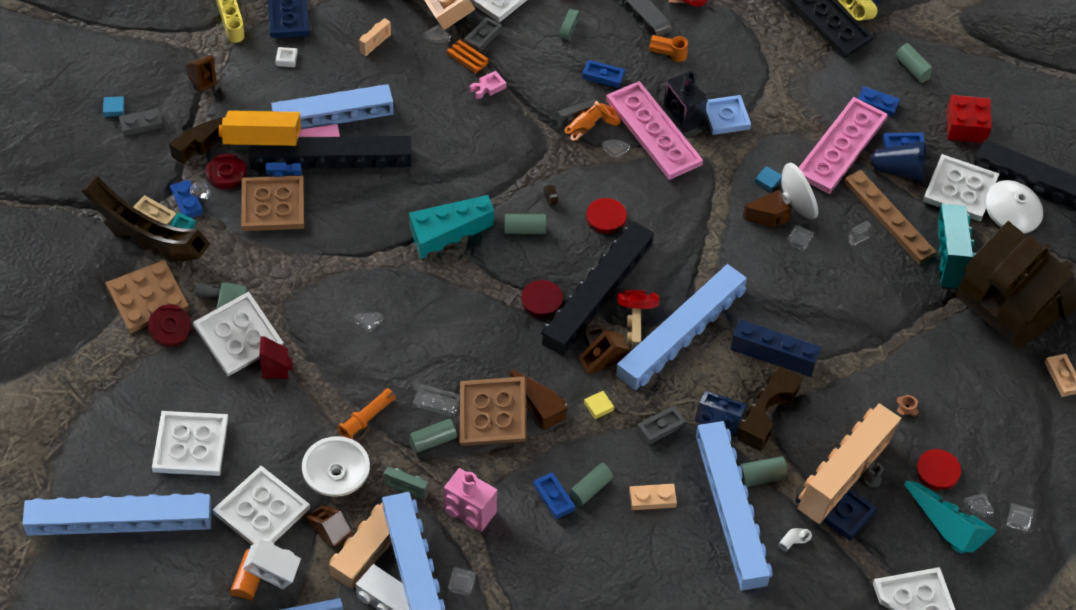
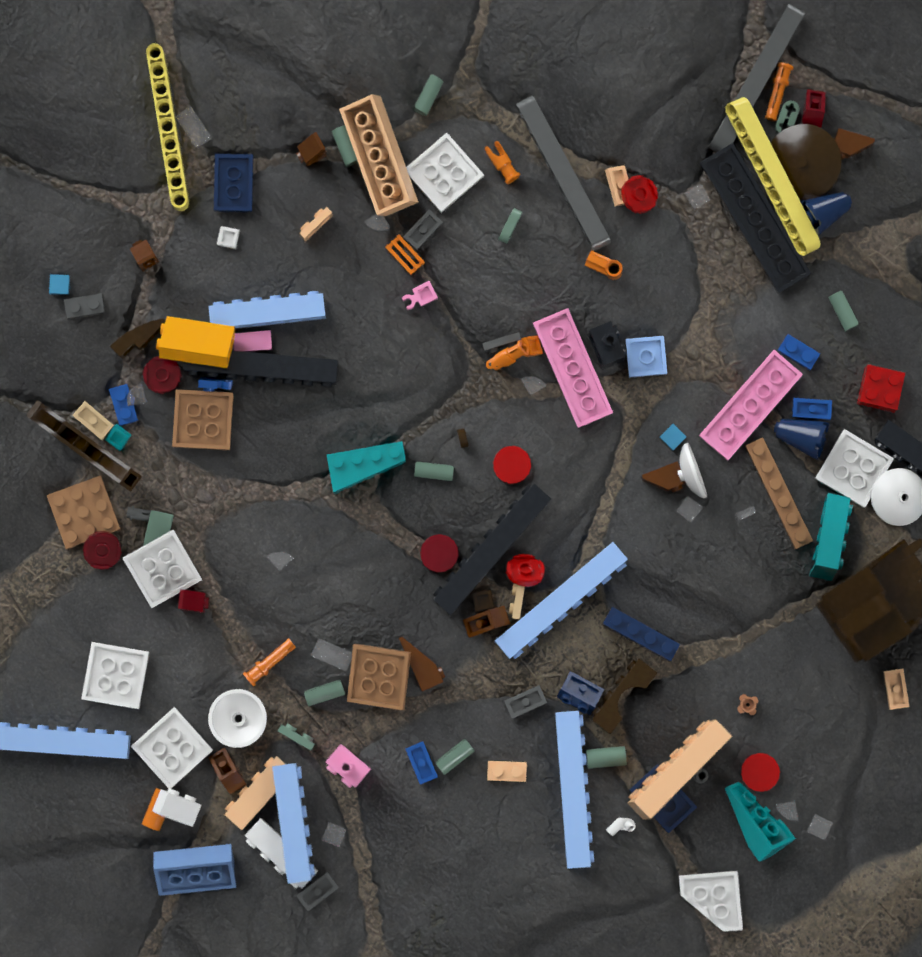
camera: 10 degrees right, 30 degrees up
(599, 405) = (474, 673): light yellow tile -> none
(603, 73) = (534, 292): blue plate -> none

